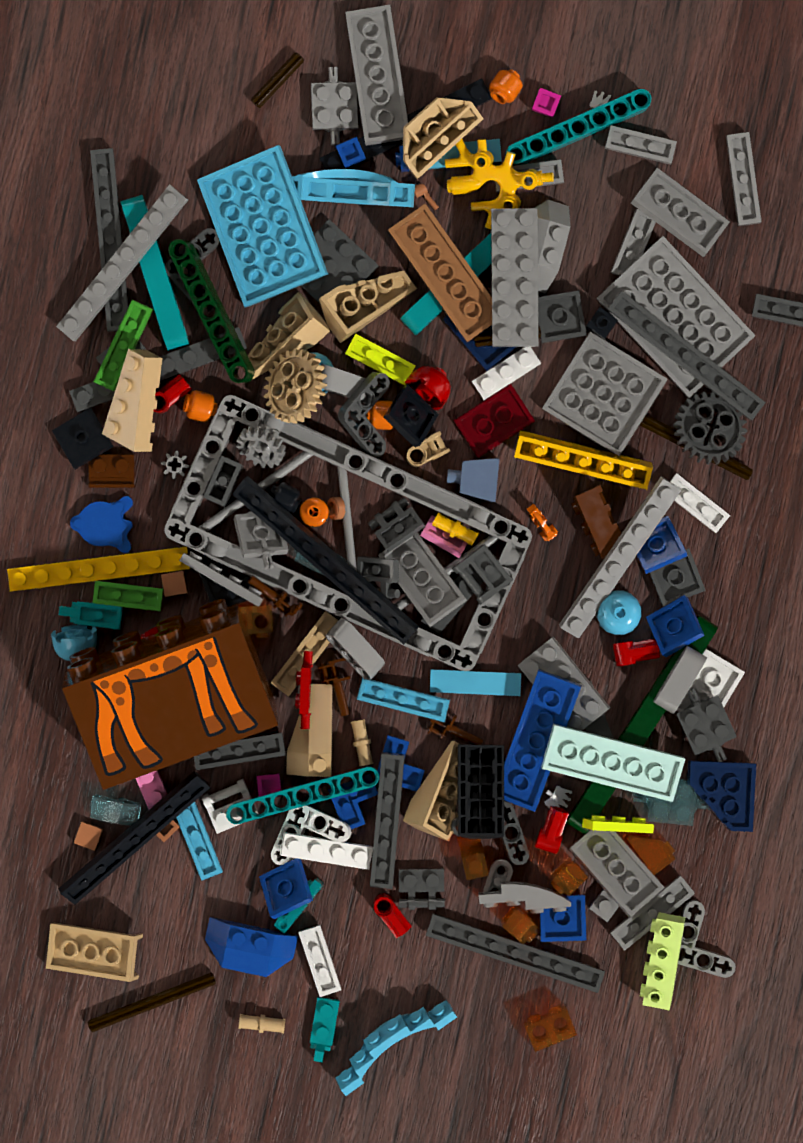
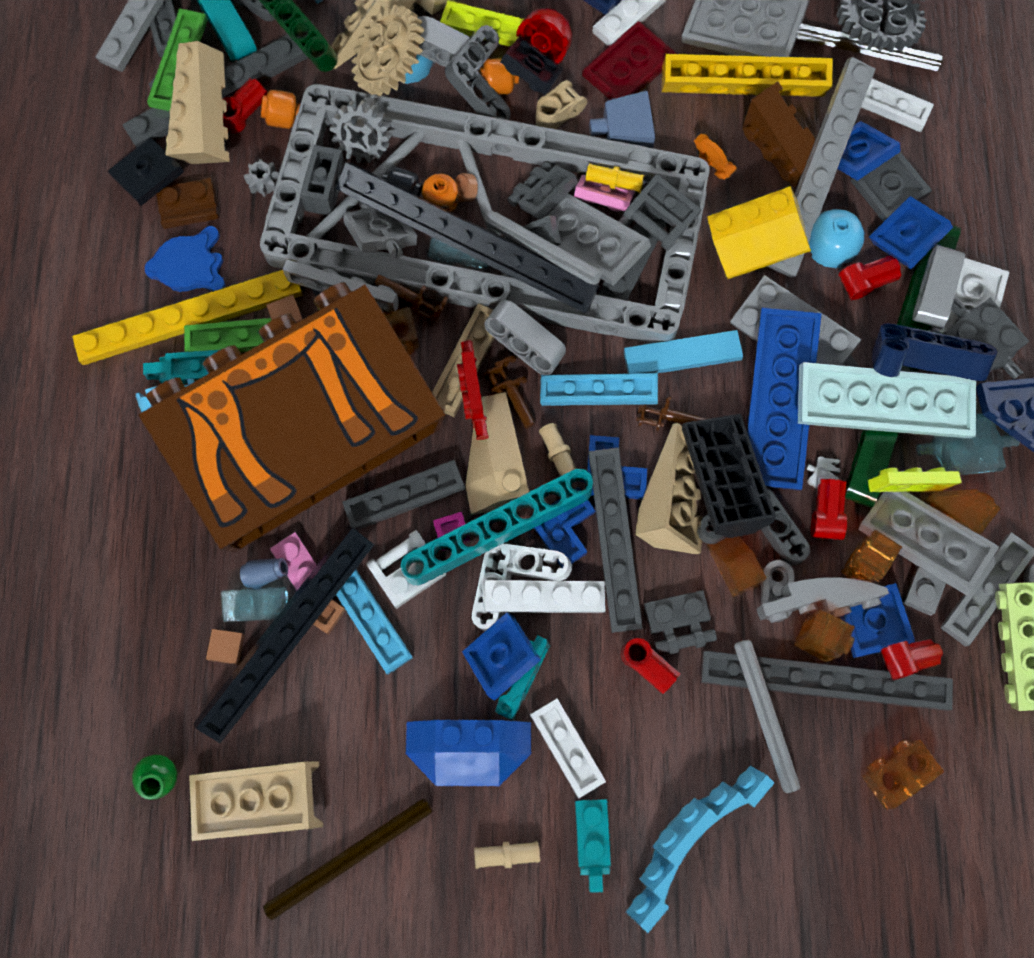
camera: 10 degrees left, 15 degrees down
(26, 920) = (154, 777): none -> green piece
(127, 790) = (262, 572): none -> sand blue cone
(382, 585) = (543, 248): none -> light grey axle
(465, 969) = (767, 716): none -> light grey axle
(555, 604) = (759, 232): none -> yellow slope
(574, 952) = (907, 659): none -> red piece
(655, 732) = (931, 352): none -> dark blue beam

